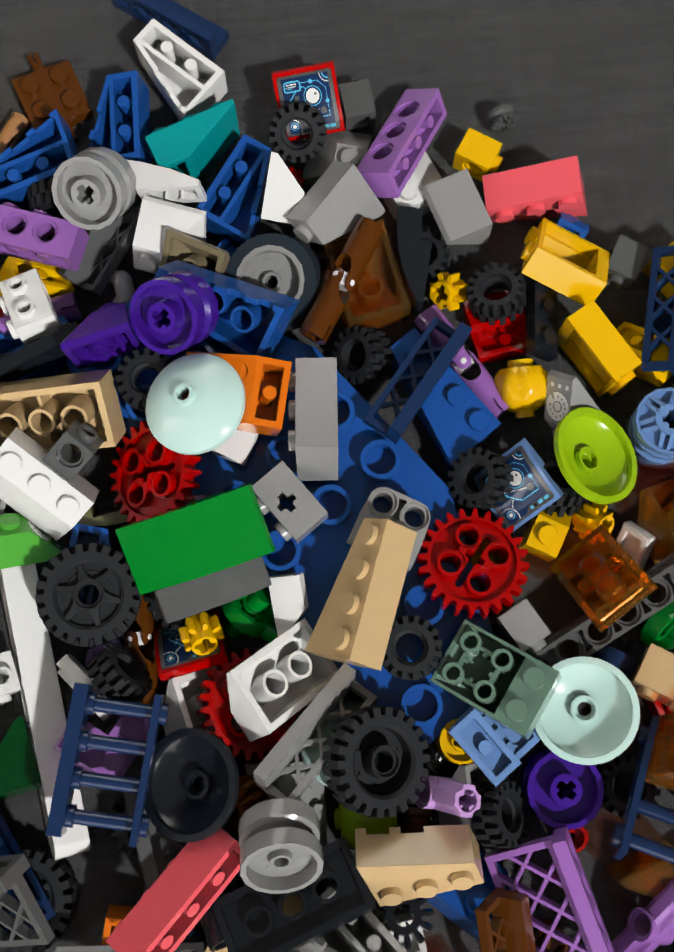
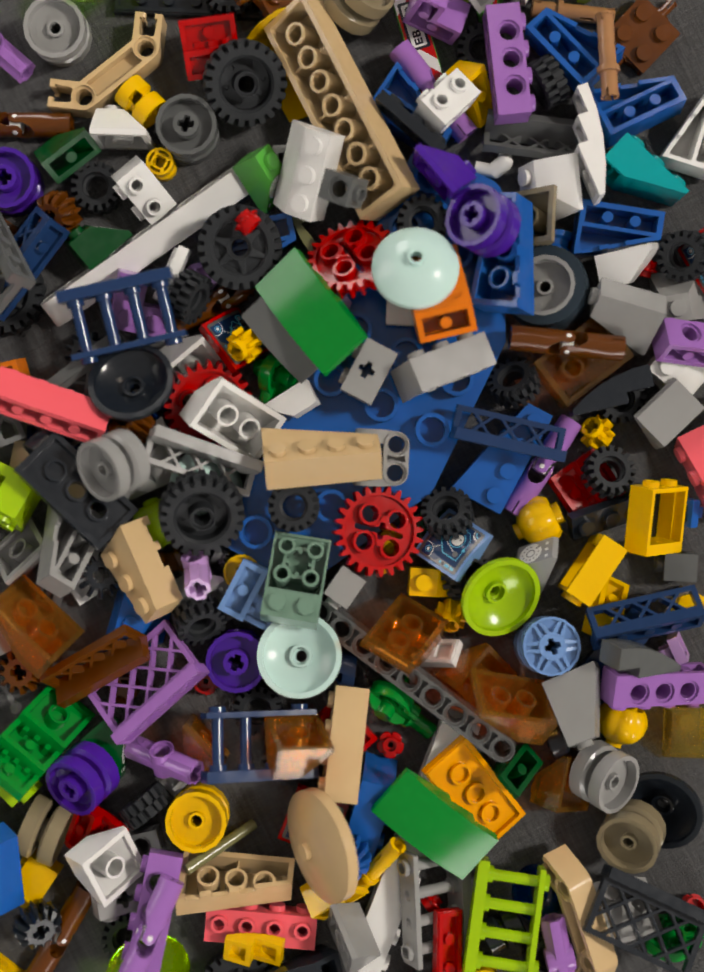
camera: 70 degrees right, 10 degrees up
(63, 572) = (247, 221): none -> red plate
(69, 130) = (608, 66): none -> medium nougat pin
(94, 188) = (564, 111): light grey wheel -> none

